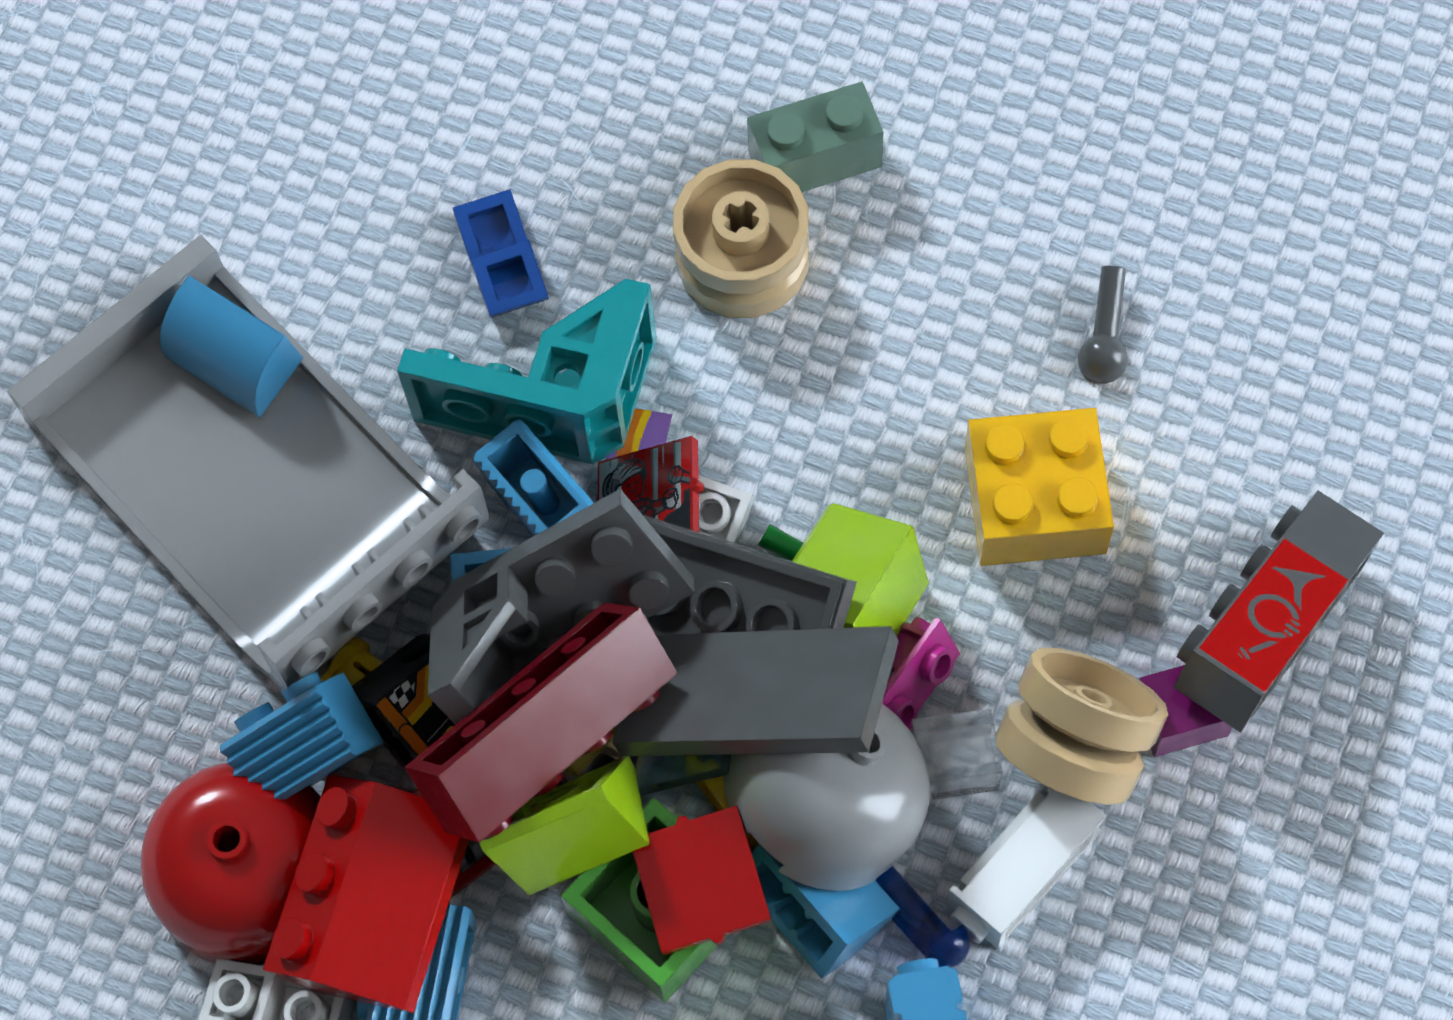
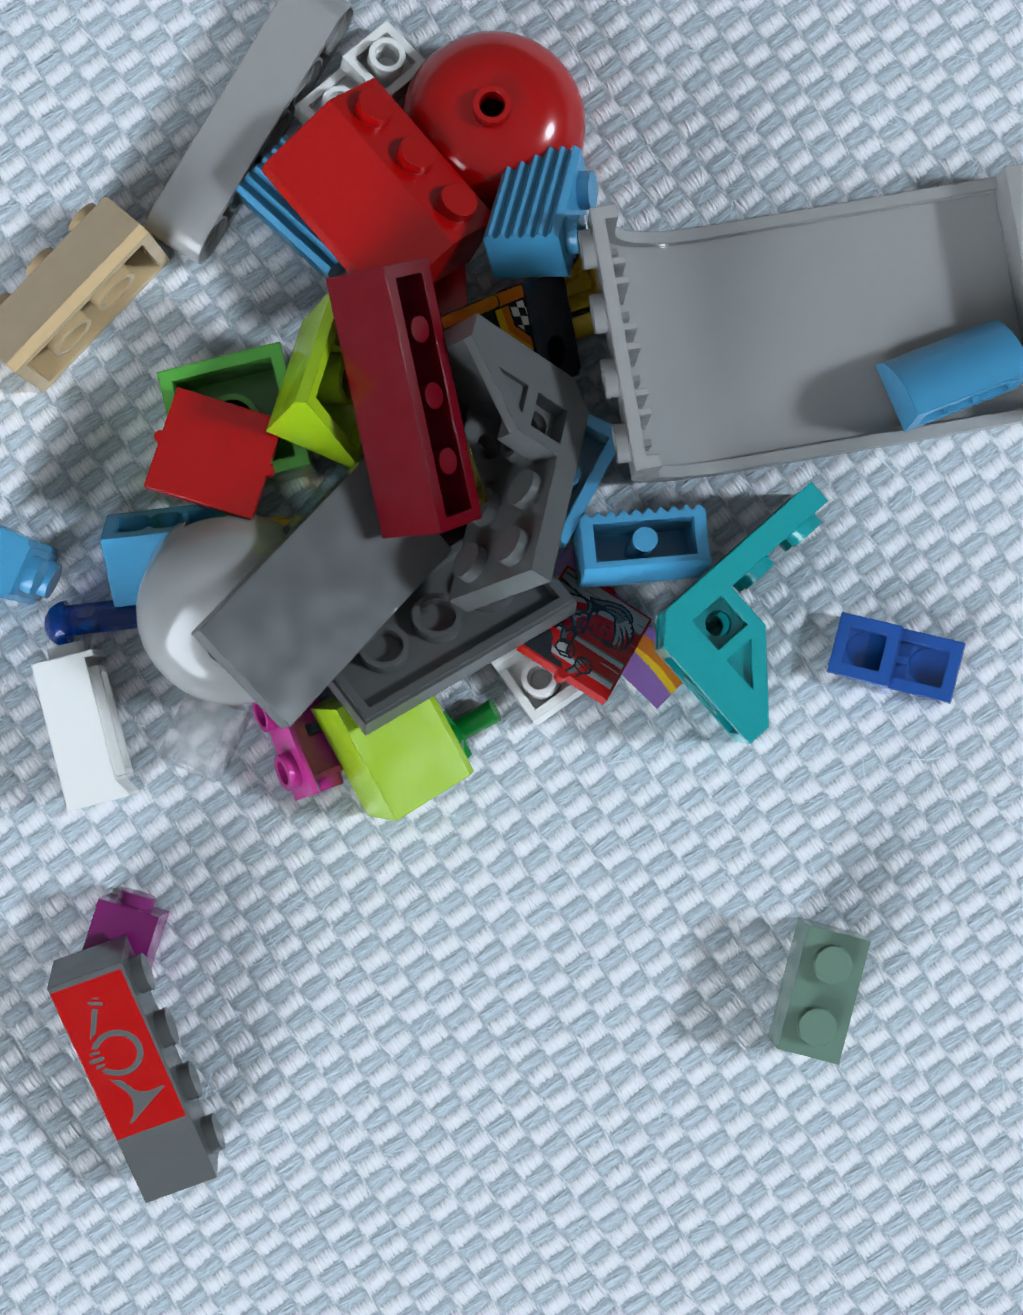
camera: 120 degrees right, 20 degrees up
(741, 238) = (803, 874): tan wheel -> none
(1038, 486) = (380, 957): yellow brick -> none
(1080, 726) = (142, 838): tan wheel -> none
(1103, 355) = (468, 1097): dark grey bar -> none

